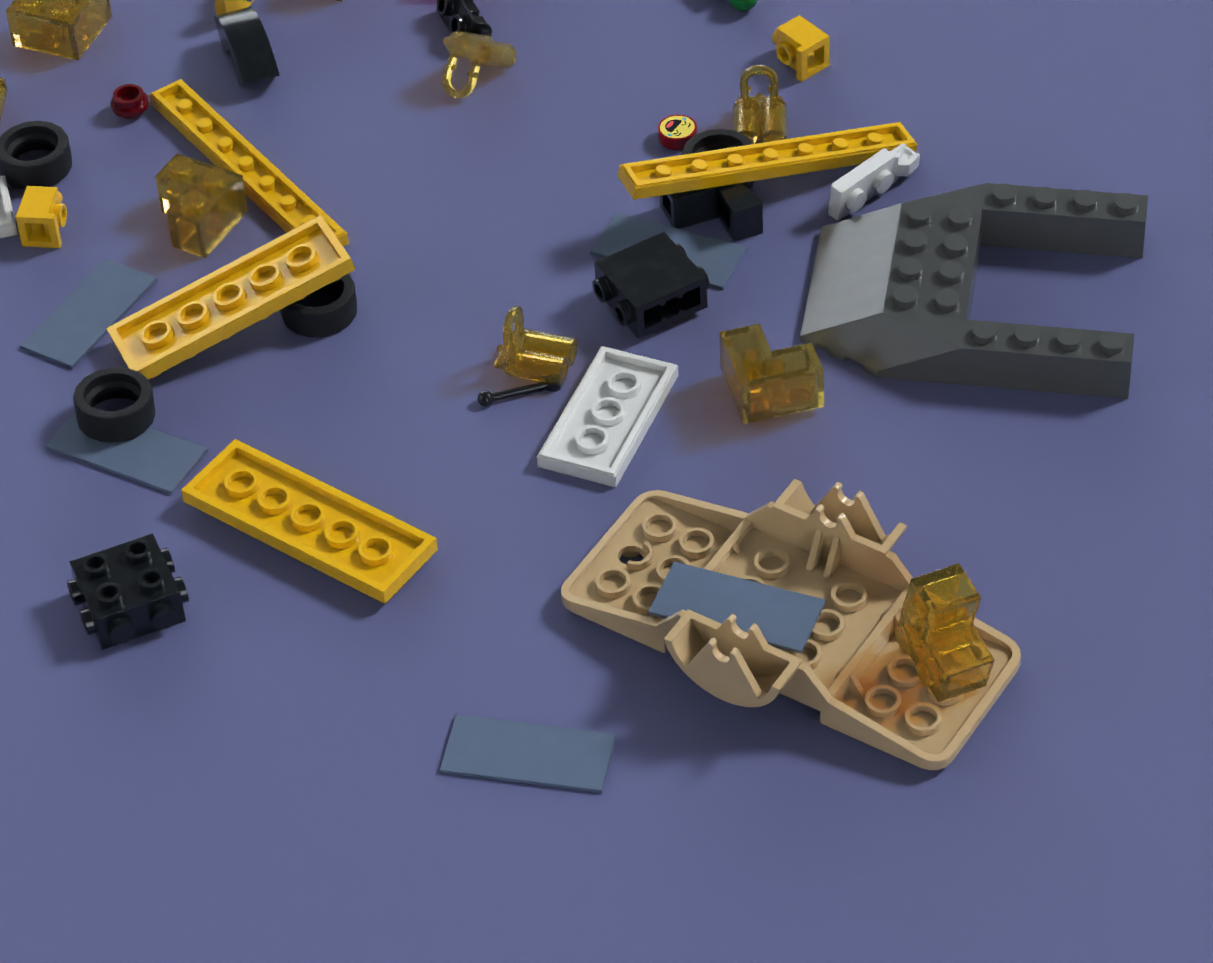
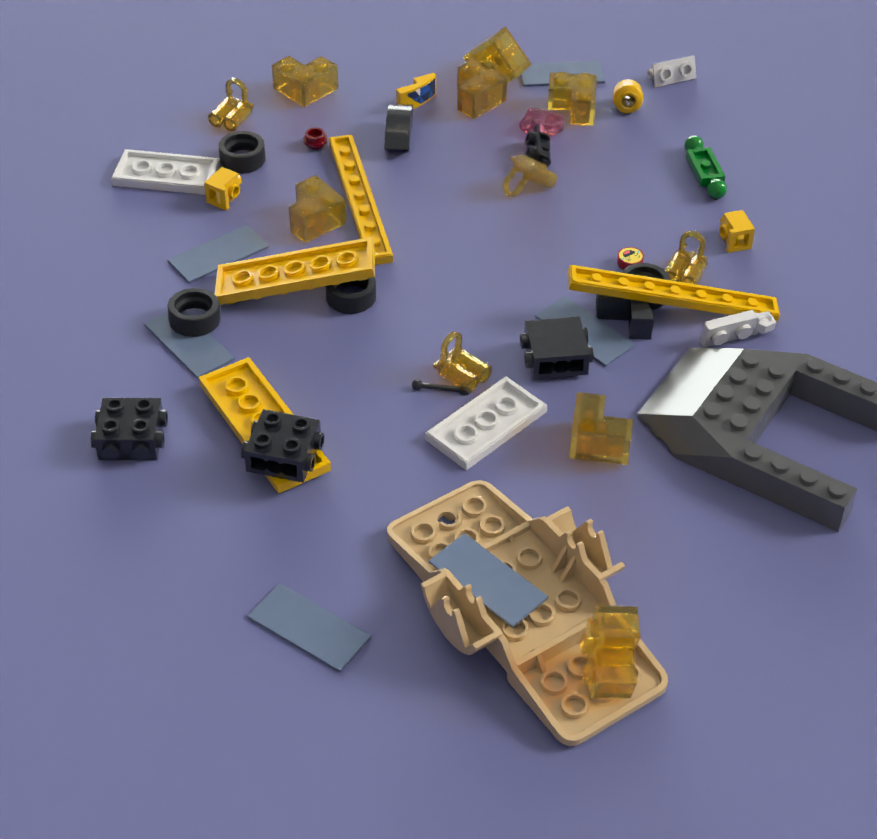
camera: 20 degrees right, 0 degrees up
(365, 536) = (283, 445): none -> black brick

